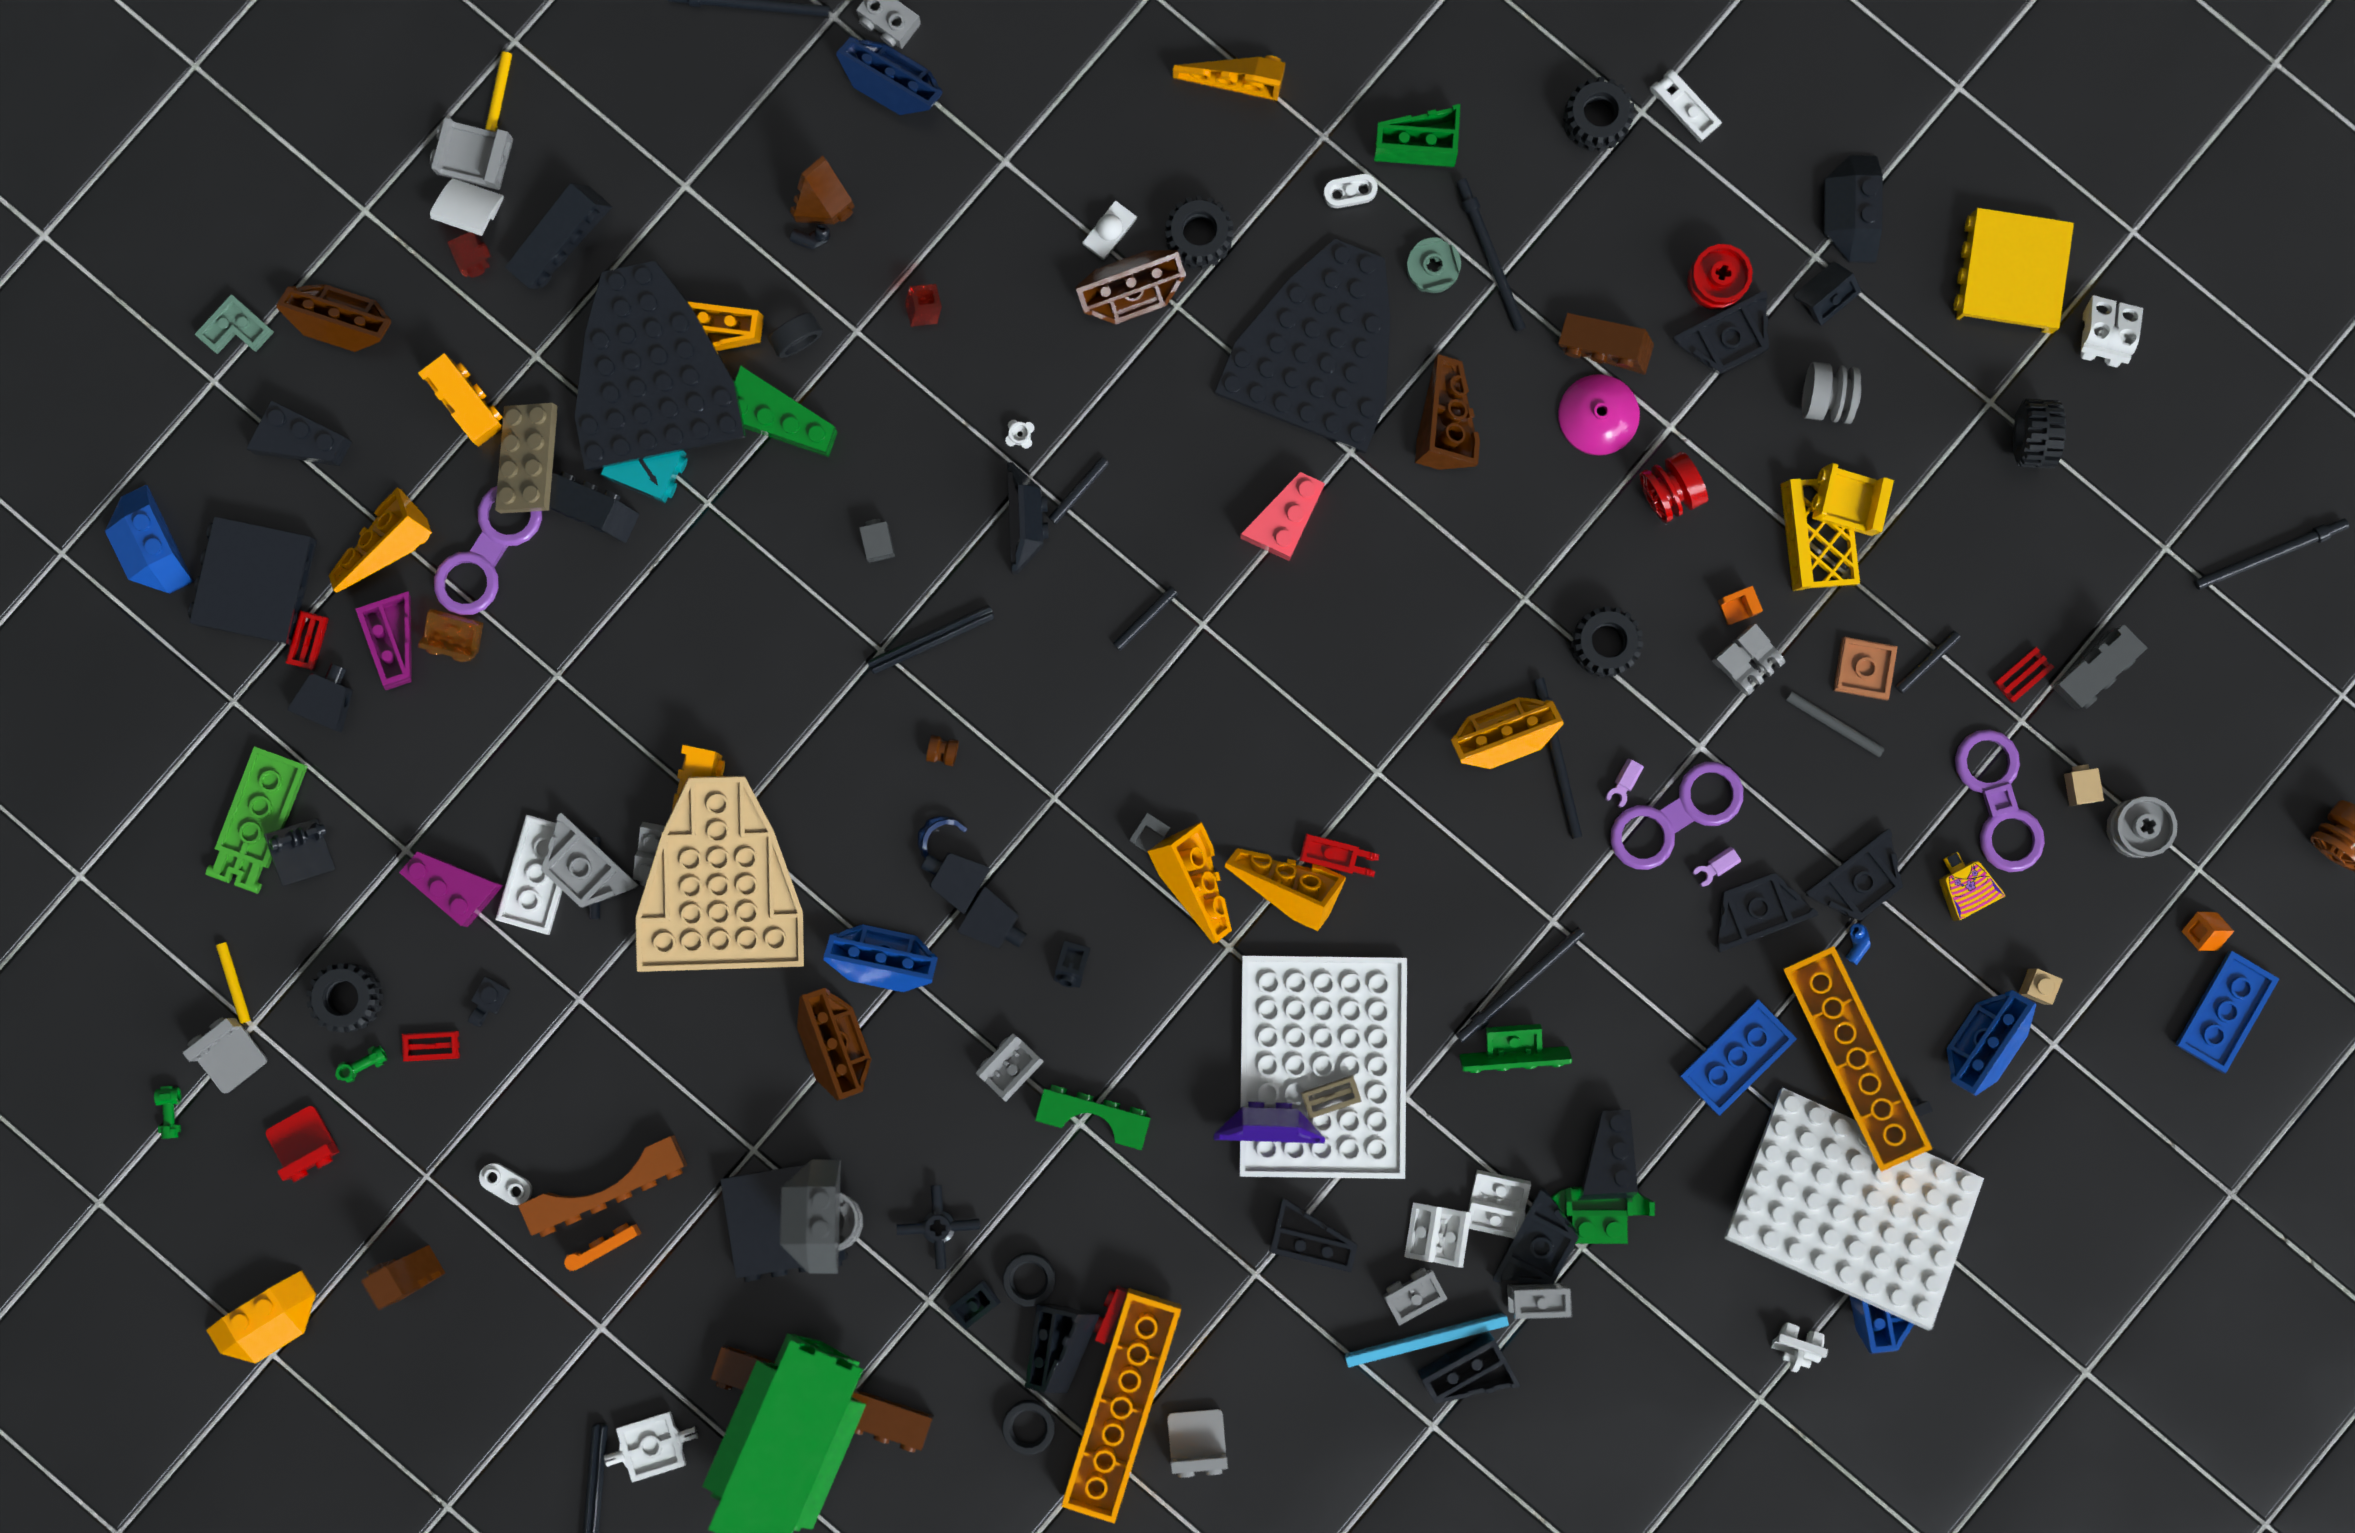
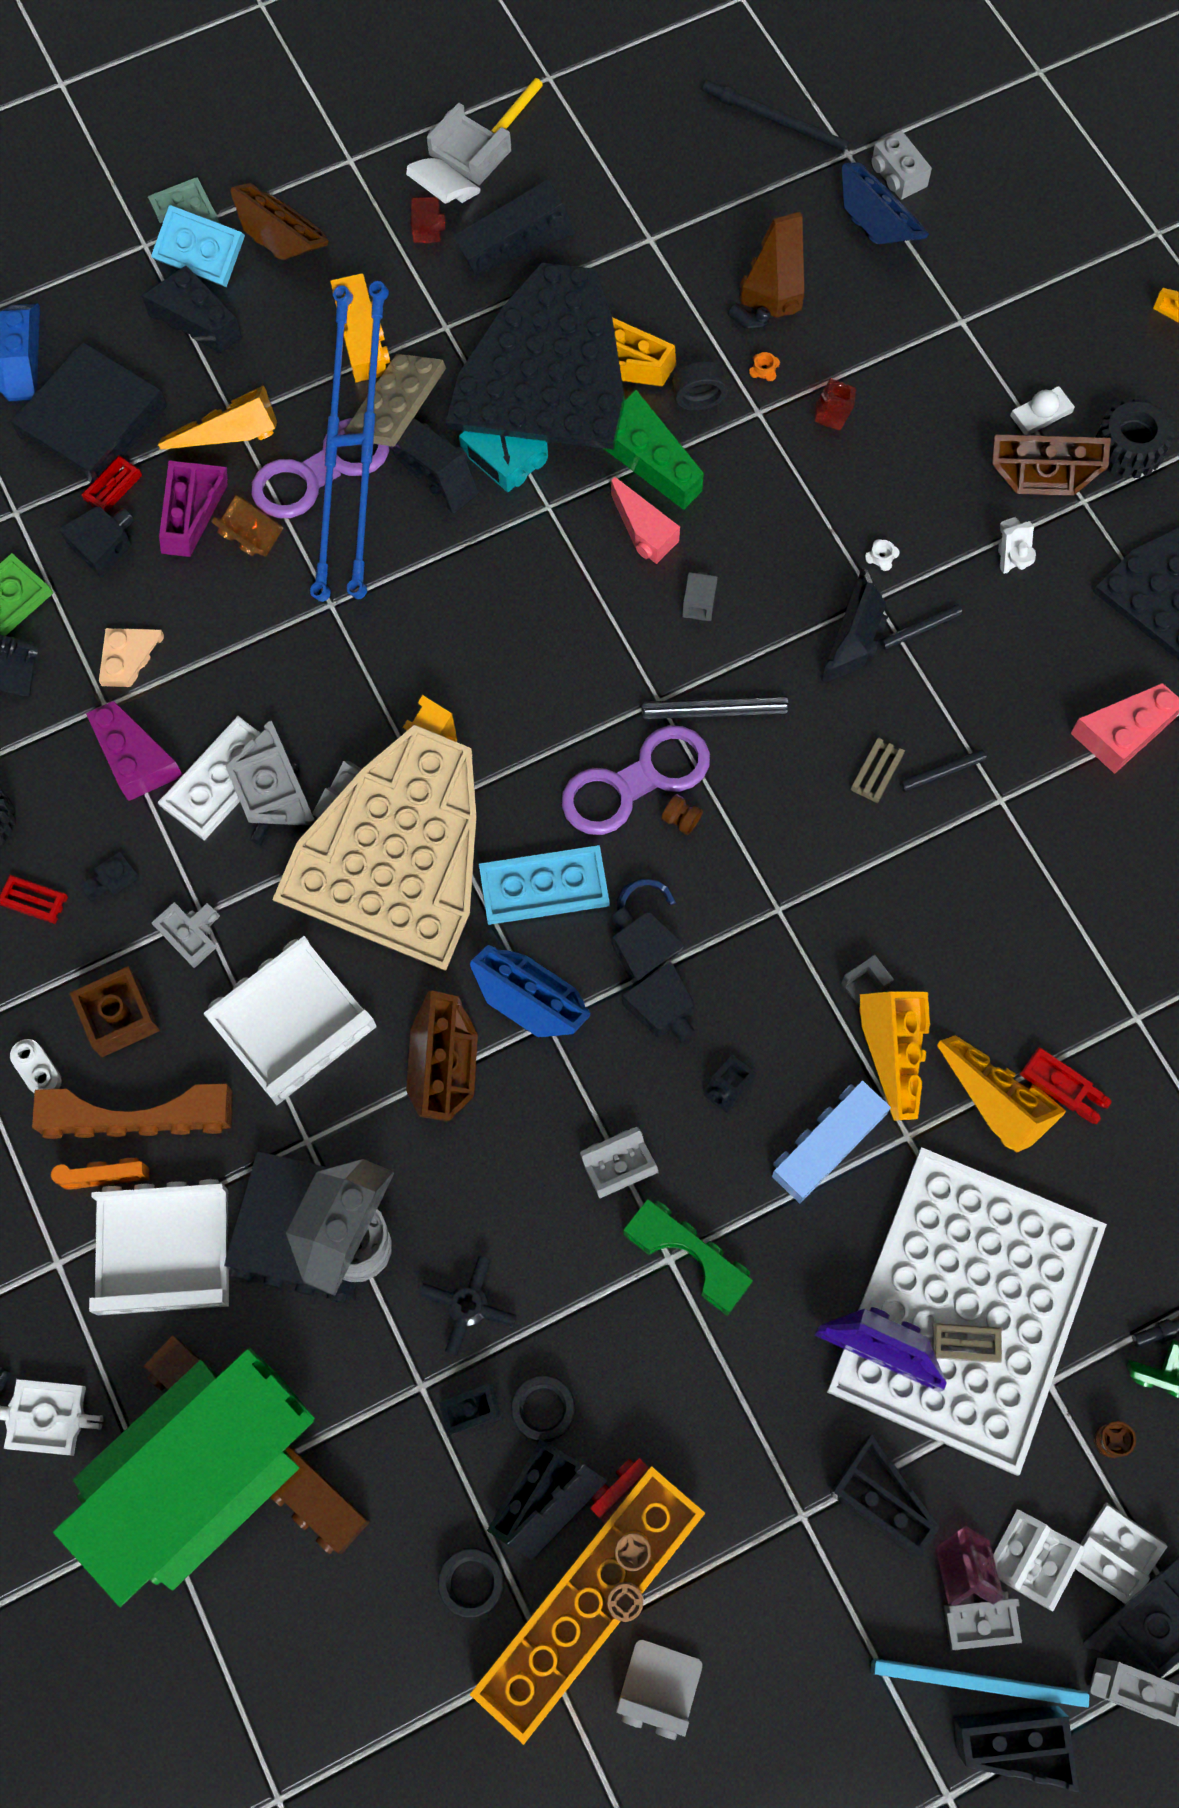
camera: 30 degrees right, 15 degrees down
(268, 369) = (198, 244): none -> medium azure plate
(401, 797) = (125, 654): none -> light nougat wing
(521, 516) = (334, 440): none -> blue bar
(550, 1114) = (114, 1012): none -> reddish brown brick
(575, 1021) = (188, 931): none -> light grey hinge
(678, 1283) = (161, 1248): none -> white panel
(694, 1059) = (289, 1019): none -> white panel
(807, 494) = (647, 526): none -> coral slope
(847, 277) = (764, 360): none -> orange plate
(852, 859) = (544, 885): none -> medium azure plate
(890, 733) = (635, 780): none -> medium lavender bar
(1092, 617) = (888, 750): none -> dark tan tile
(1133, 385) = (1016, 545): none -> white hips
(1137, 1364) = (633, 1551): none -> medium nougat wheel
(1146, 1392) = (629, 1598): none -> medium nougat wheel
(1169, 980) = (830, 1141): none -> light blue brick
(1390, 1262) = (968, 1567): none -> clear pink panel
(1467, 1122) = (1119, 1435): none -> reddish brown wheel

